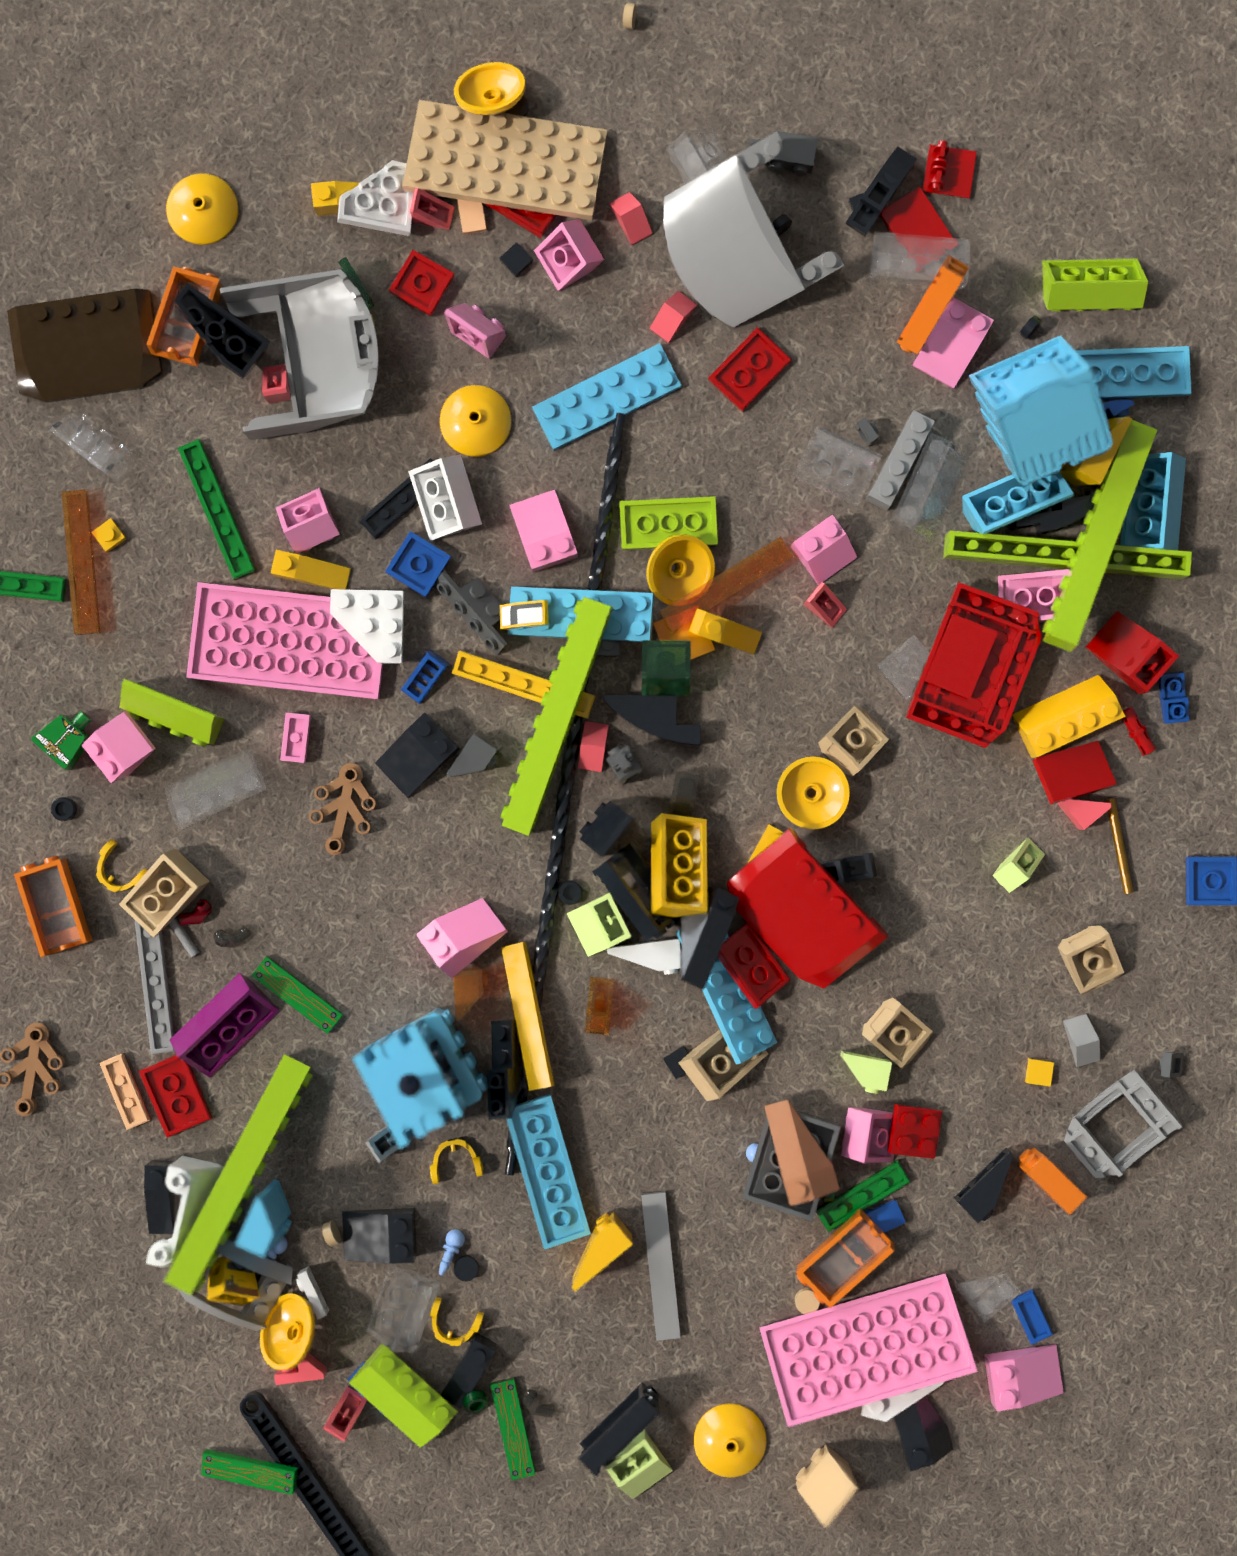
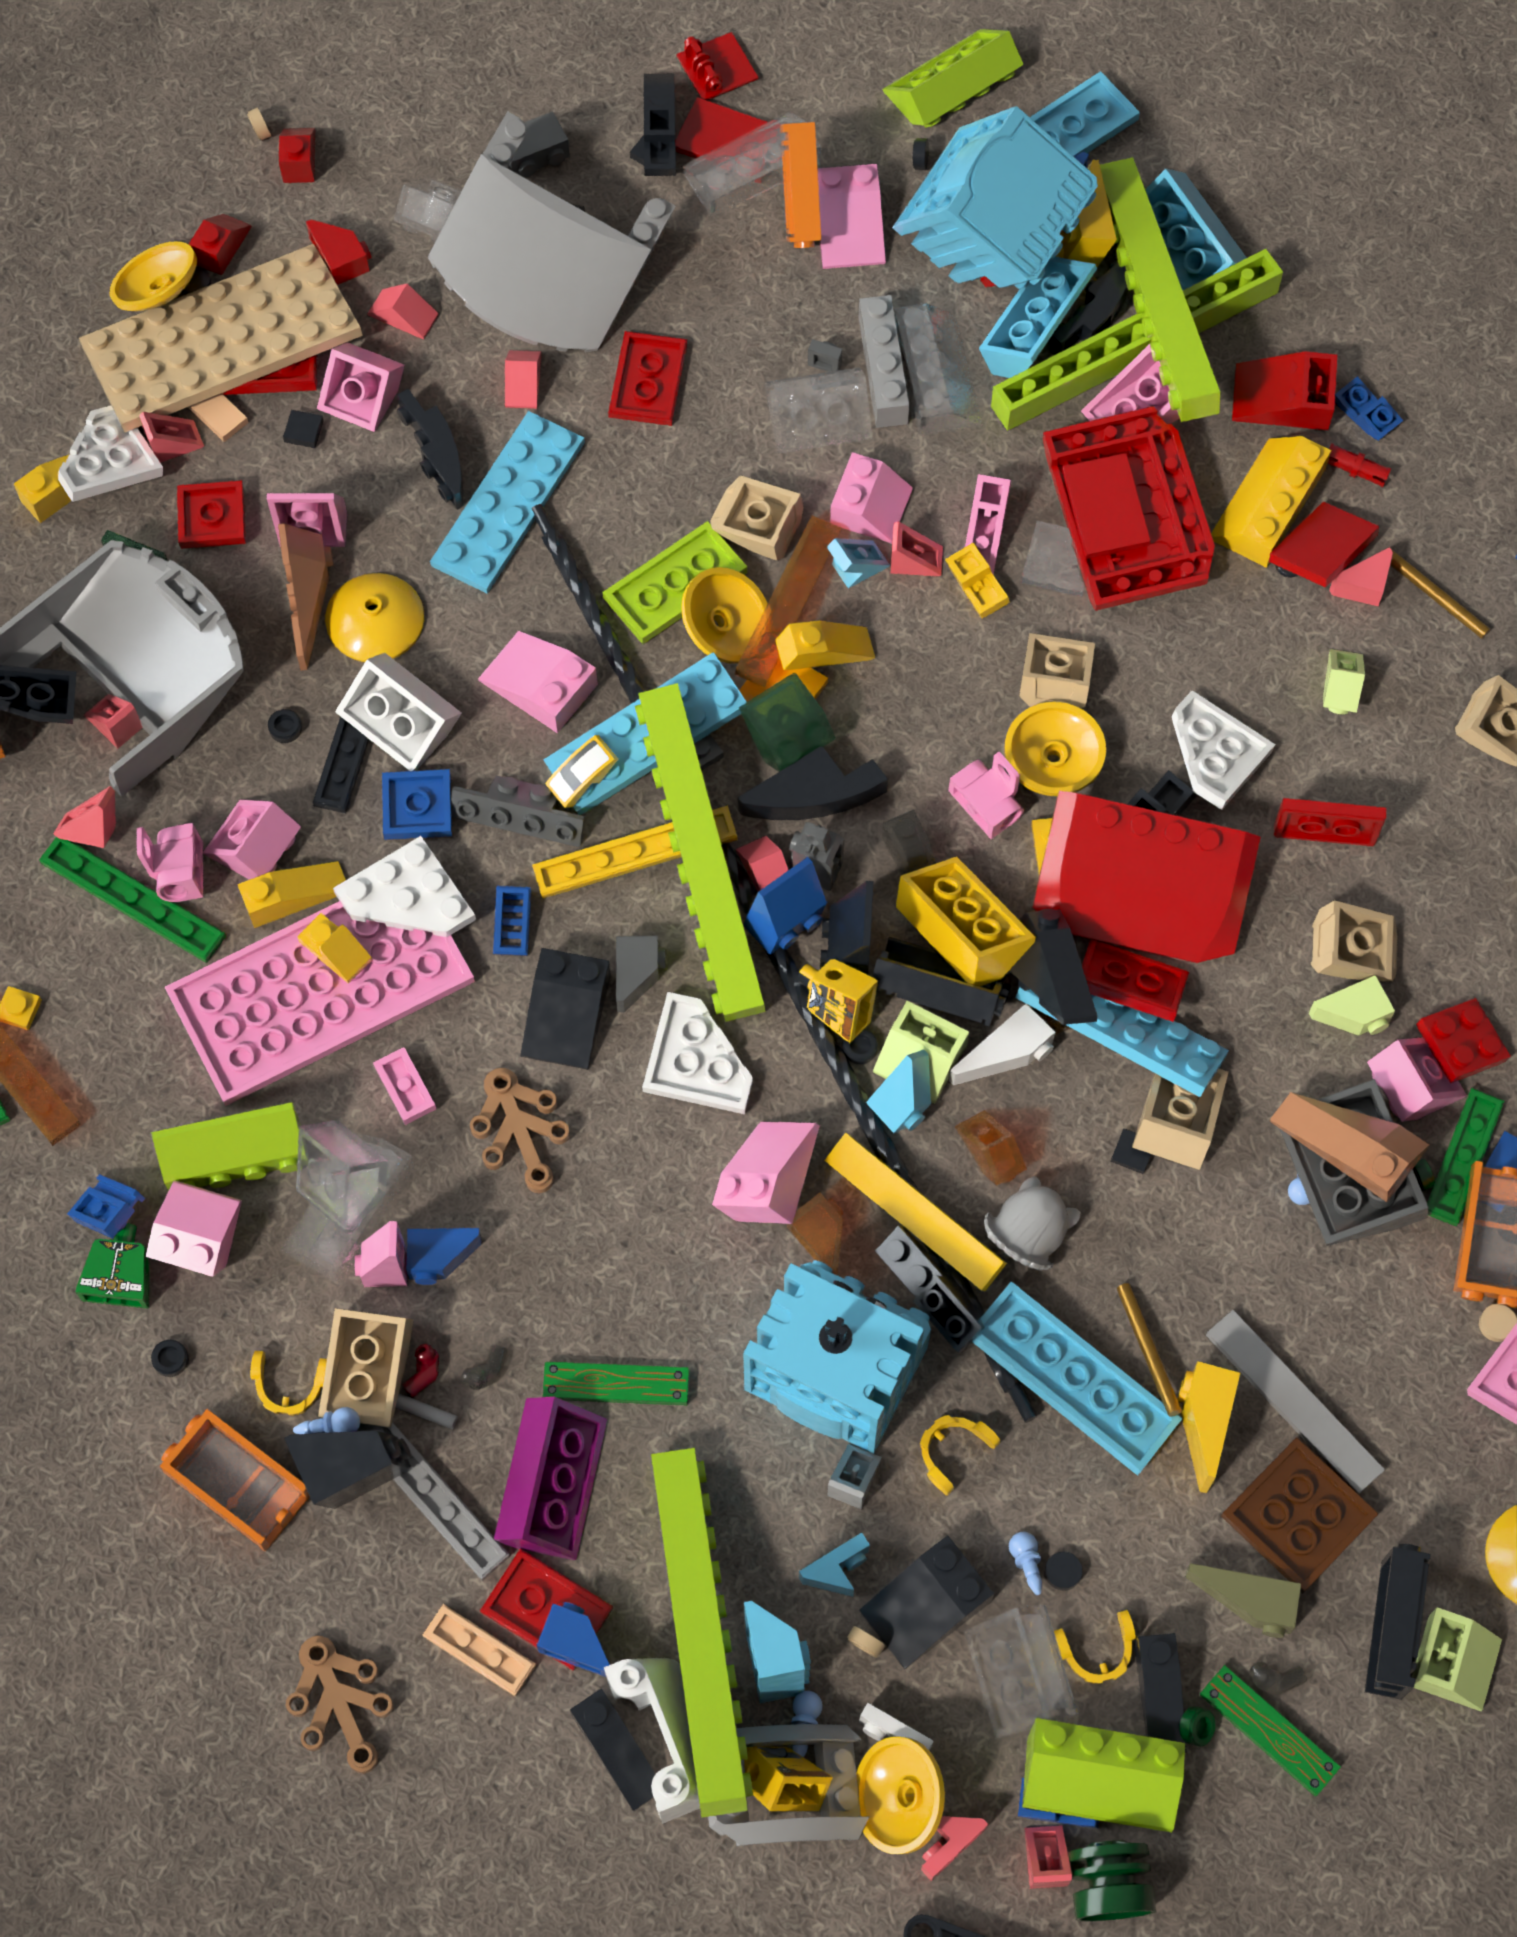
camera: 30 degrees left, 20 degrees down
(79, 697) = (105, 1206): none -> blue plate
(113, 944) = (347, 1464): none -> black slope
(127, 919) = (342, 1420): none -> light blue bar
(174, 1127) = (572, 1639): none -> blue slope
(211, 839) = (383, 1258): none -> bright pink slope
(217, 775) = (339, 1173): none -> clear slope
(219, 444) = (91, 821): none -> coral slope
(247, 851) = (438, 1252): none -> blue slope
(251, 506) = (174, 861): none -> bright pink piece
(308, 626) = (335, 947): none -> yellow slope
(337, 1181) = (827, 1571): none -> medium azure slope
(366, 1454) = (1112, 1881): none -> dark green wheel
(375, 457) = (284, 726): none -> black tile
(452, 362) = (307, 571): none -> nougat wedge
(470, 836) = (695, 1059): none -> white plate
(549, 87) = (218, 241): none -> red slope
(558, 1361) = (1254, 1598): none -> olive slope
(570, 945) = (904, 1093): none -> medium azure slope
(573, 861) = (840, 997): none -> yellow torso
(581, 787) = (787, 908): none -> blue slope
(585, 338) = (436, 445): none -> black slope
(585, 1069) = (1031, 1224): none -> light grey hair
(601, 1183) = (1149, 1350): none -> pearl gold bar
(615, 1329) = (1299, 1515): none -> reddish brown plate
(618, 147) = (339, 250): none -> red slope
(640, 54) = (297, 155): none -> red slope
(746, 514) = (758, 516): none -> tan slope
(753, 792) = (988, 794): none -> bright pink piece
(788, 584) = (856, 559): none -> medium azure slope
(849, 648) = (977, 580): none -> yellow slope
(882, 615) = (988, 516): none -> bright pink slope
(909, 858) = (1217, 749): none -> white plate
(938, 952) = (1329, 822): none -> red tile

